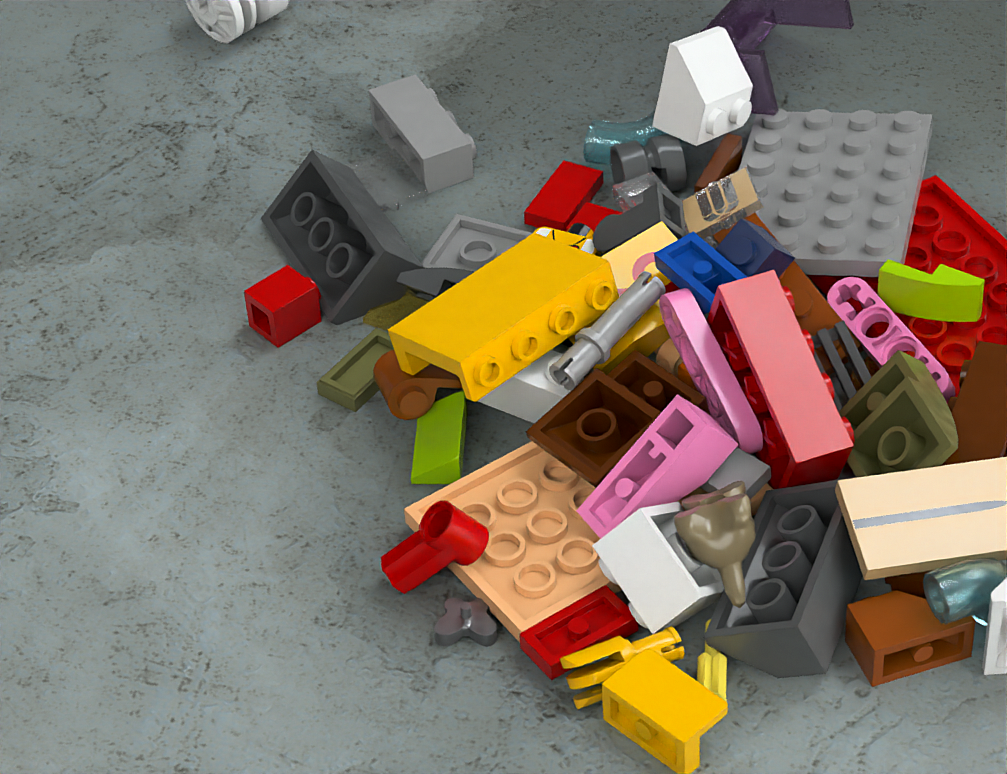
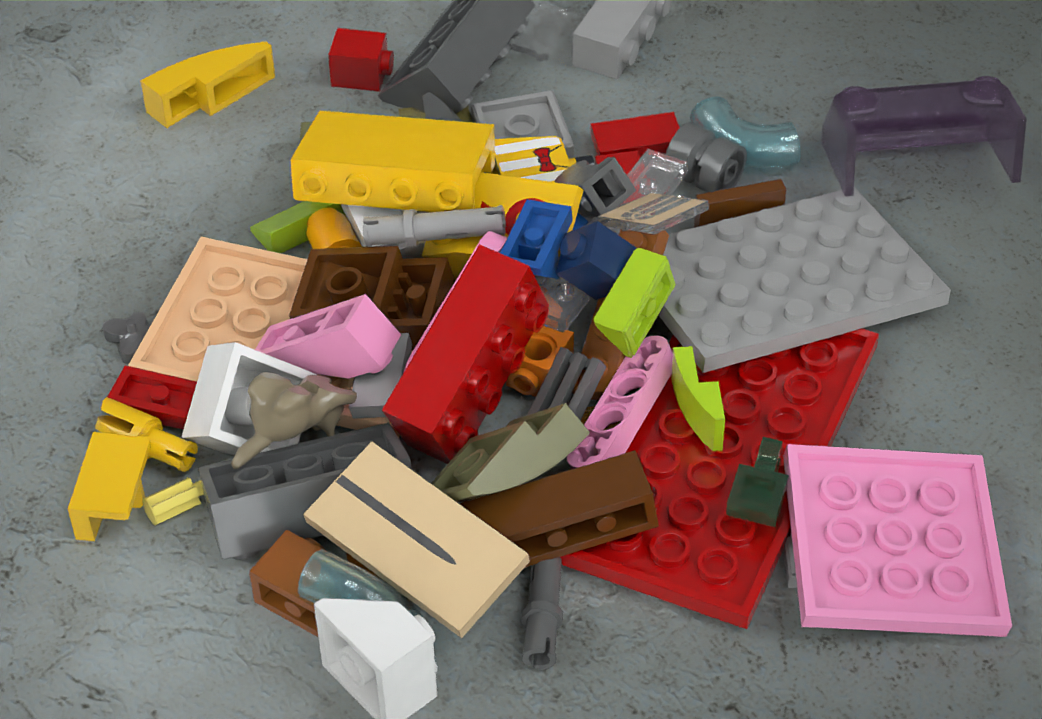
camera: 50 degrees right, 5 degrees up
(192, 418) = (207, 81): none -> yellow slope
(442, 537) = (162, 270): red piece -> none
(497, 426) = (330, 230): none -> light orange brick
(703, 88) = (788, 126): white slope -> none
(813, 259) = (635, 300): none -> lime slope

